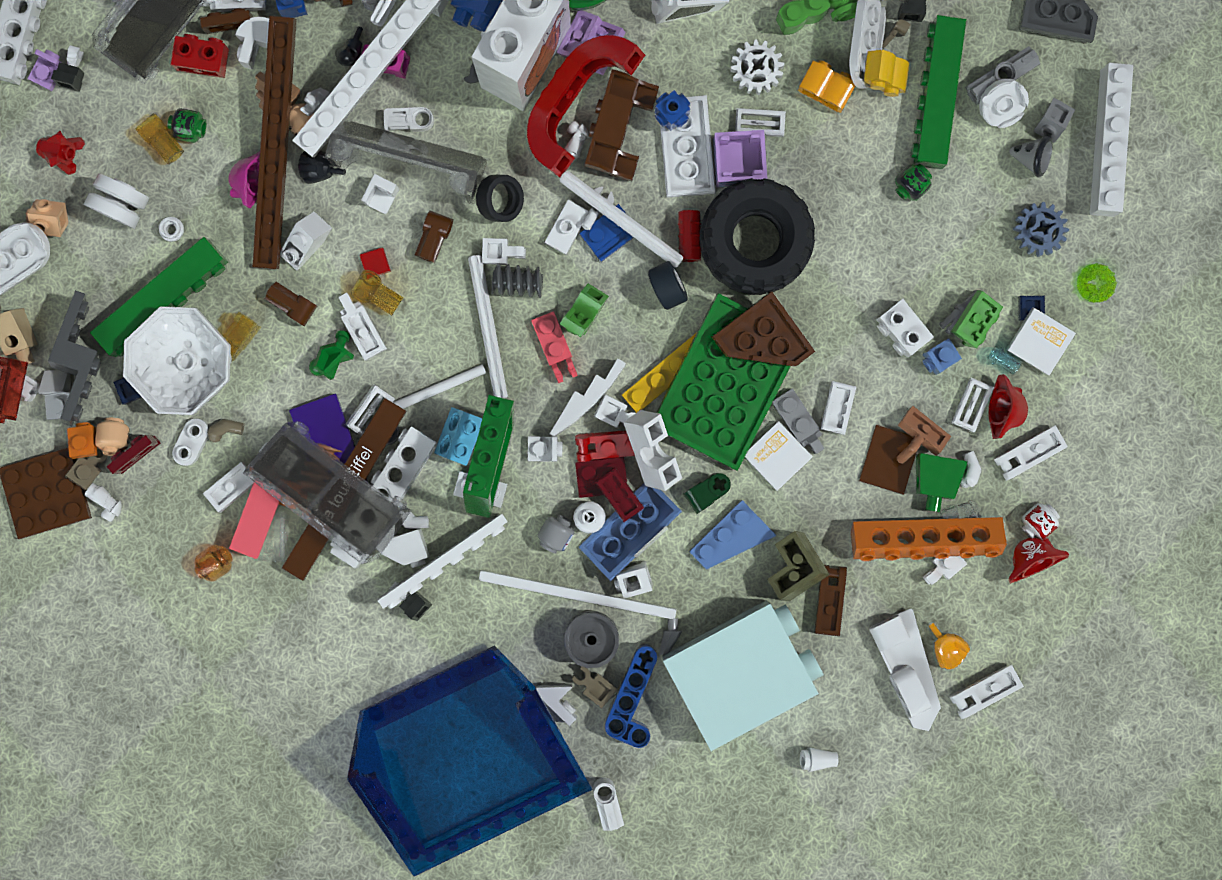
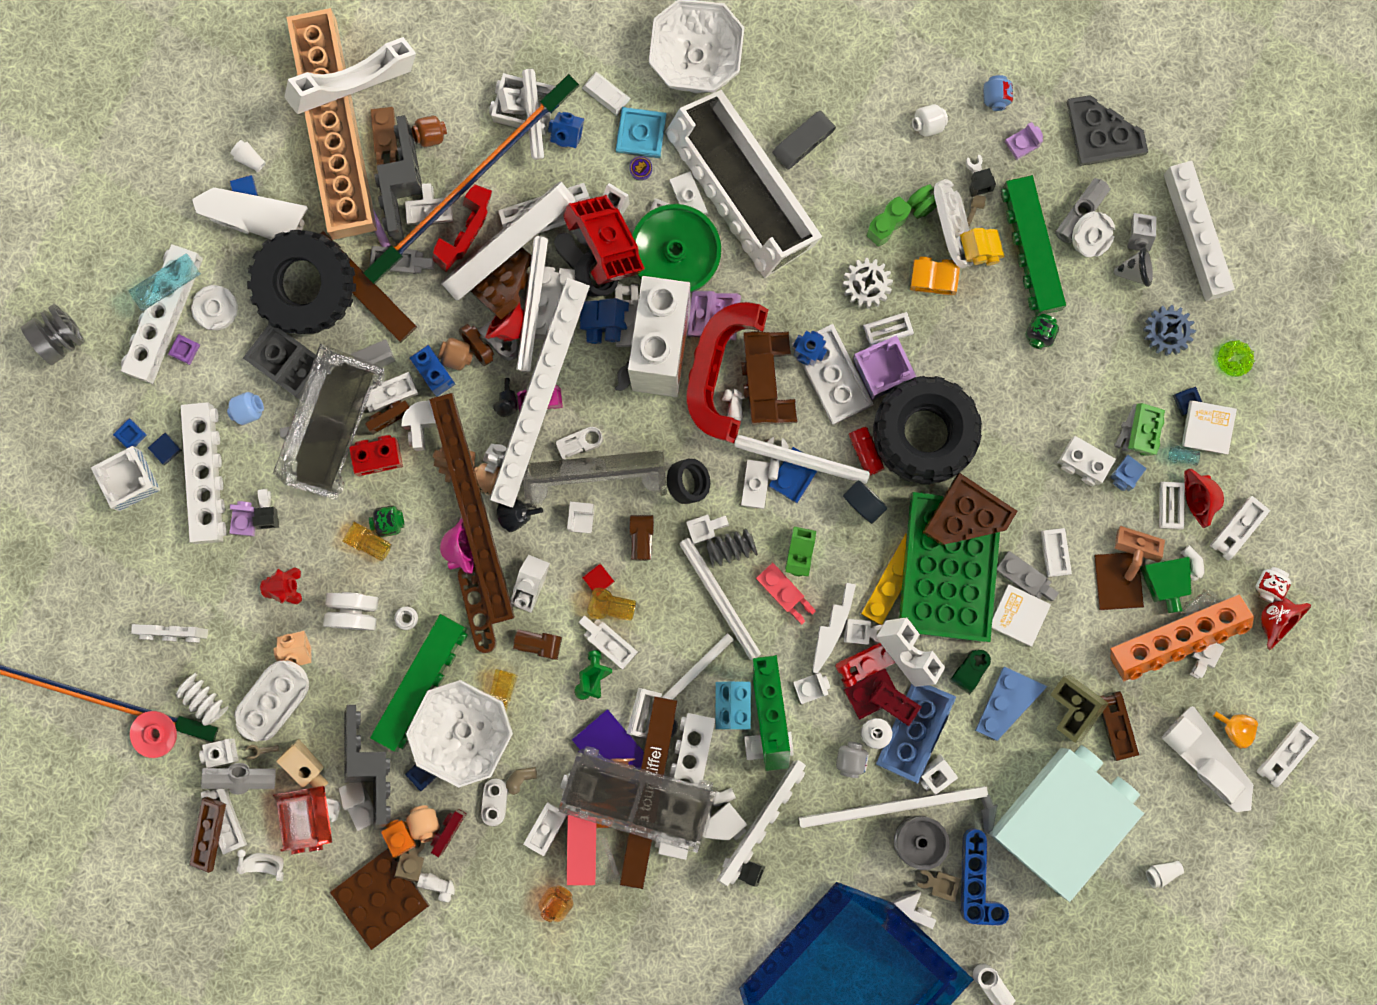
camera: 15 degrees left, 5 degrees down
(242, 246) = (473, 610): none -> reddish brown beam

